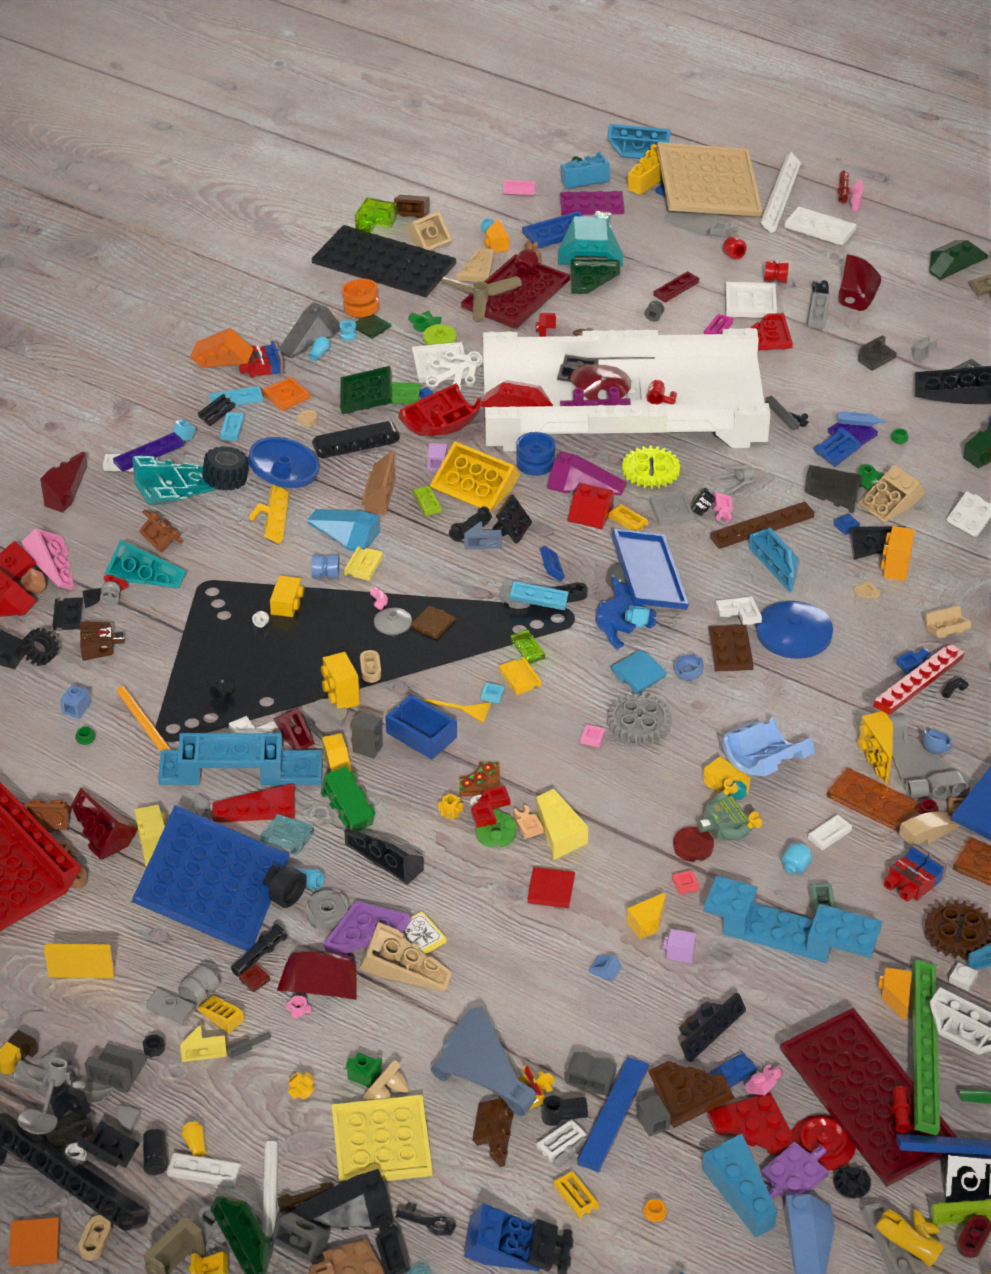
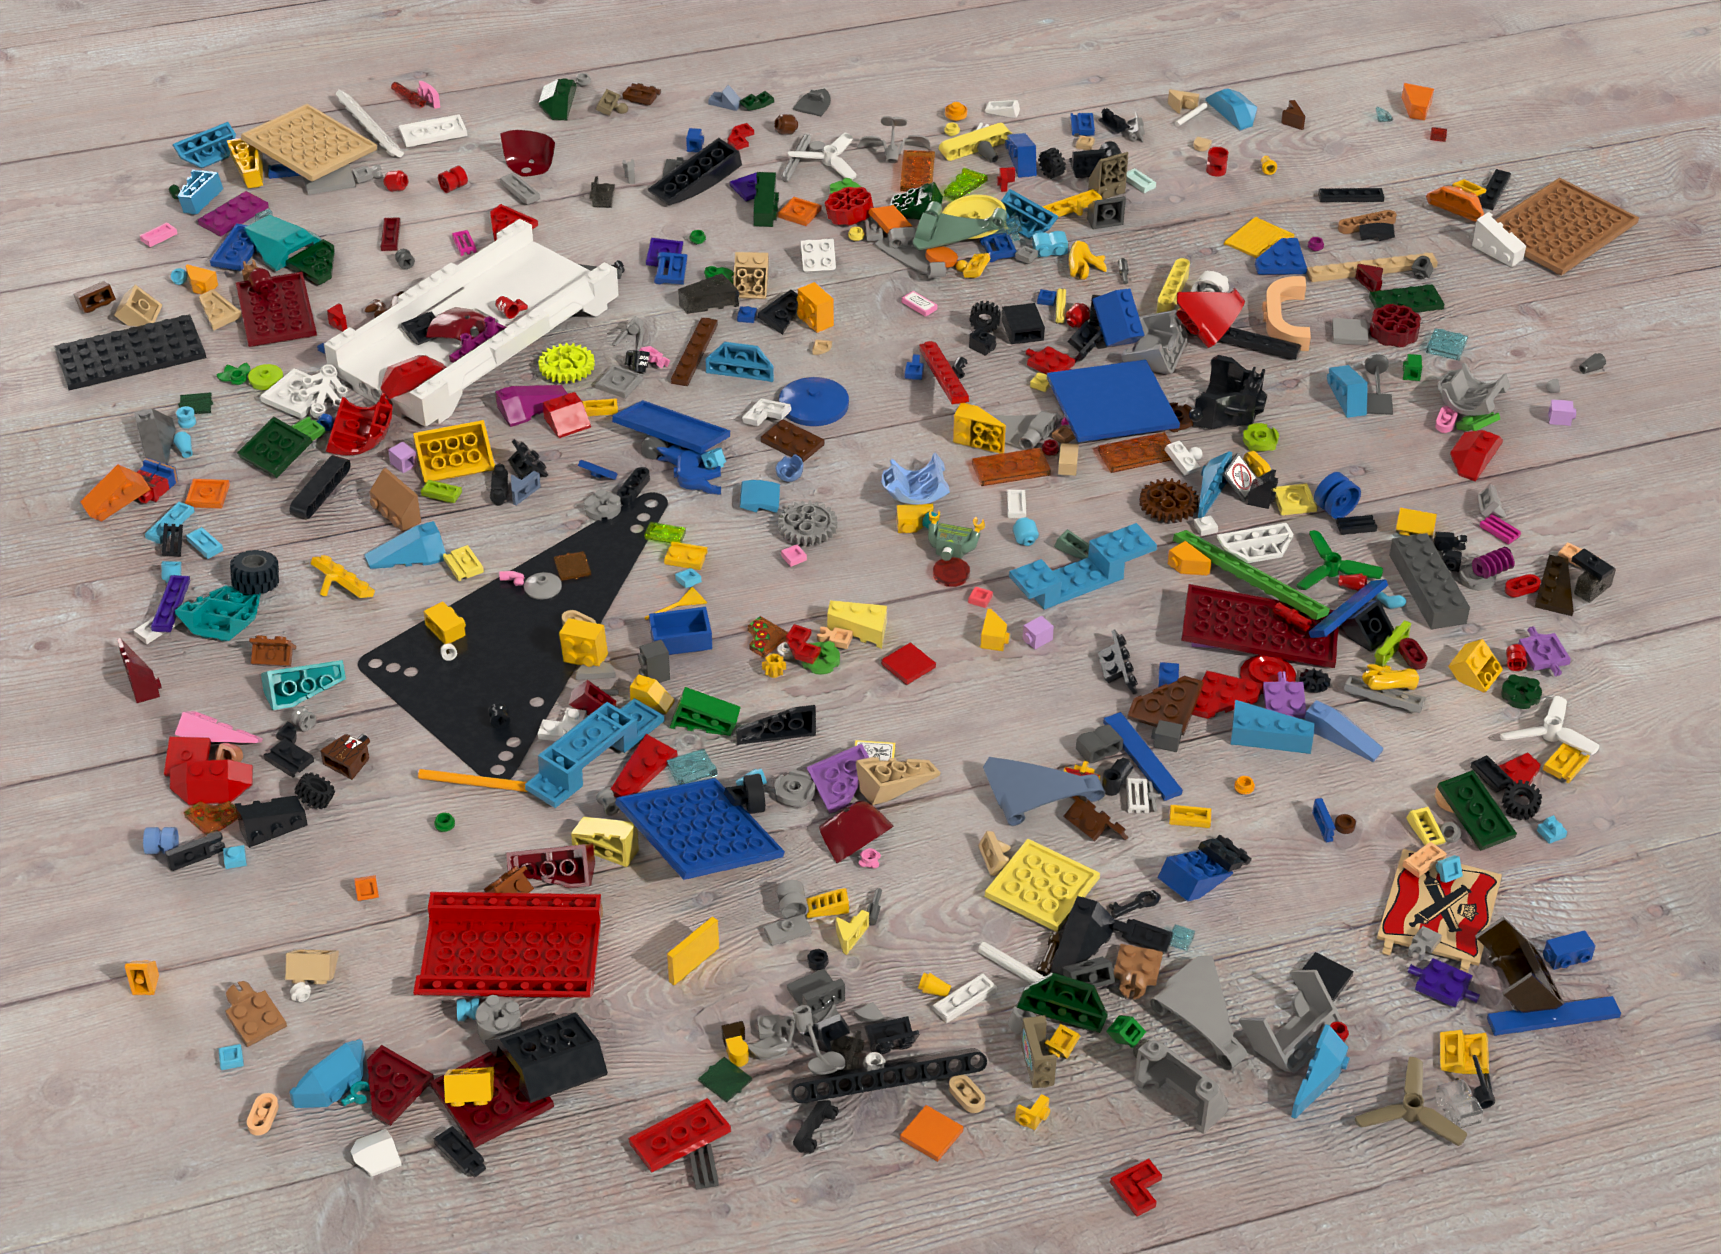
camera: 50 degrees left, 0 degrees up
(75, 701) = (401, 806): medium blue brick -> none
(121, 582) = (286, 711): red tile -> none
(154, 1152) = (923, 1014): black piece -> none
(254, 978) = (813, 867): clear red tile -> none
(265, 945) = (790, 841): black pin -> none
(283, 462) = (294, 537): blue dish -> none
(300, 1085) = (949, 897): yellow gear -> none
(307, 418) = (254, 498): tan tile -> none
(325, 566) = (441, 583): medium blue wheel -> none
(360, 298) = (163, 386): orange wheel -> none
(364, 1069) = (970, 856): green brick -> none
(374, 213) = (74, 319): clear neon green brick -> none
(481, 291) = (259, 323): dark tan piece -> none
(535, 453) = (475, 404): blue wheel -> none
(538, 595) = (625, 494): medium azure tile -> none
(606, 967) = (1010, 681): medium blue slope -> none
(750, 299) = (460, 209): white plate -> none
(763, 1082) = (1194, 666): bright pink plate -> none
(820, 287) = (498, 171): black wheel -> none
(861, 419) = (662, 240): medium blue piece -> none
(915, 874) = (1102, 491): hips -> none
(936, 741) = (1000, 405): medium blue hair -> none
(946, 622) = (900, 332): tan bracket -> none

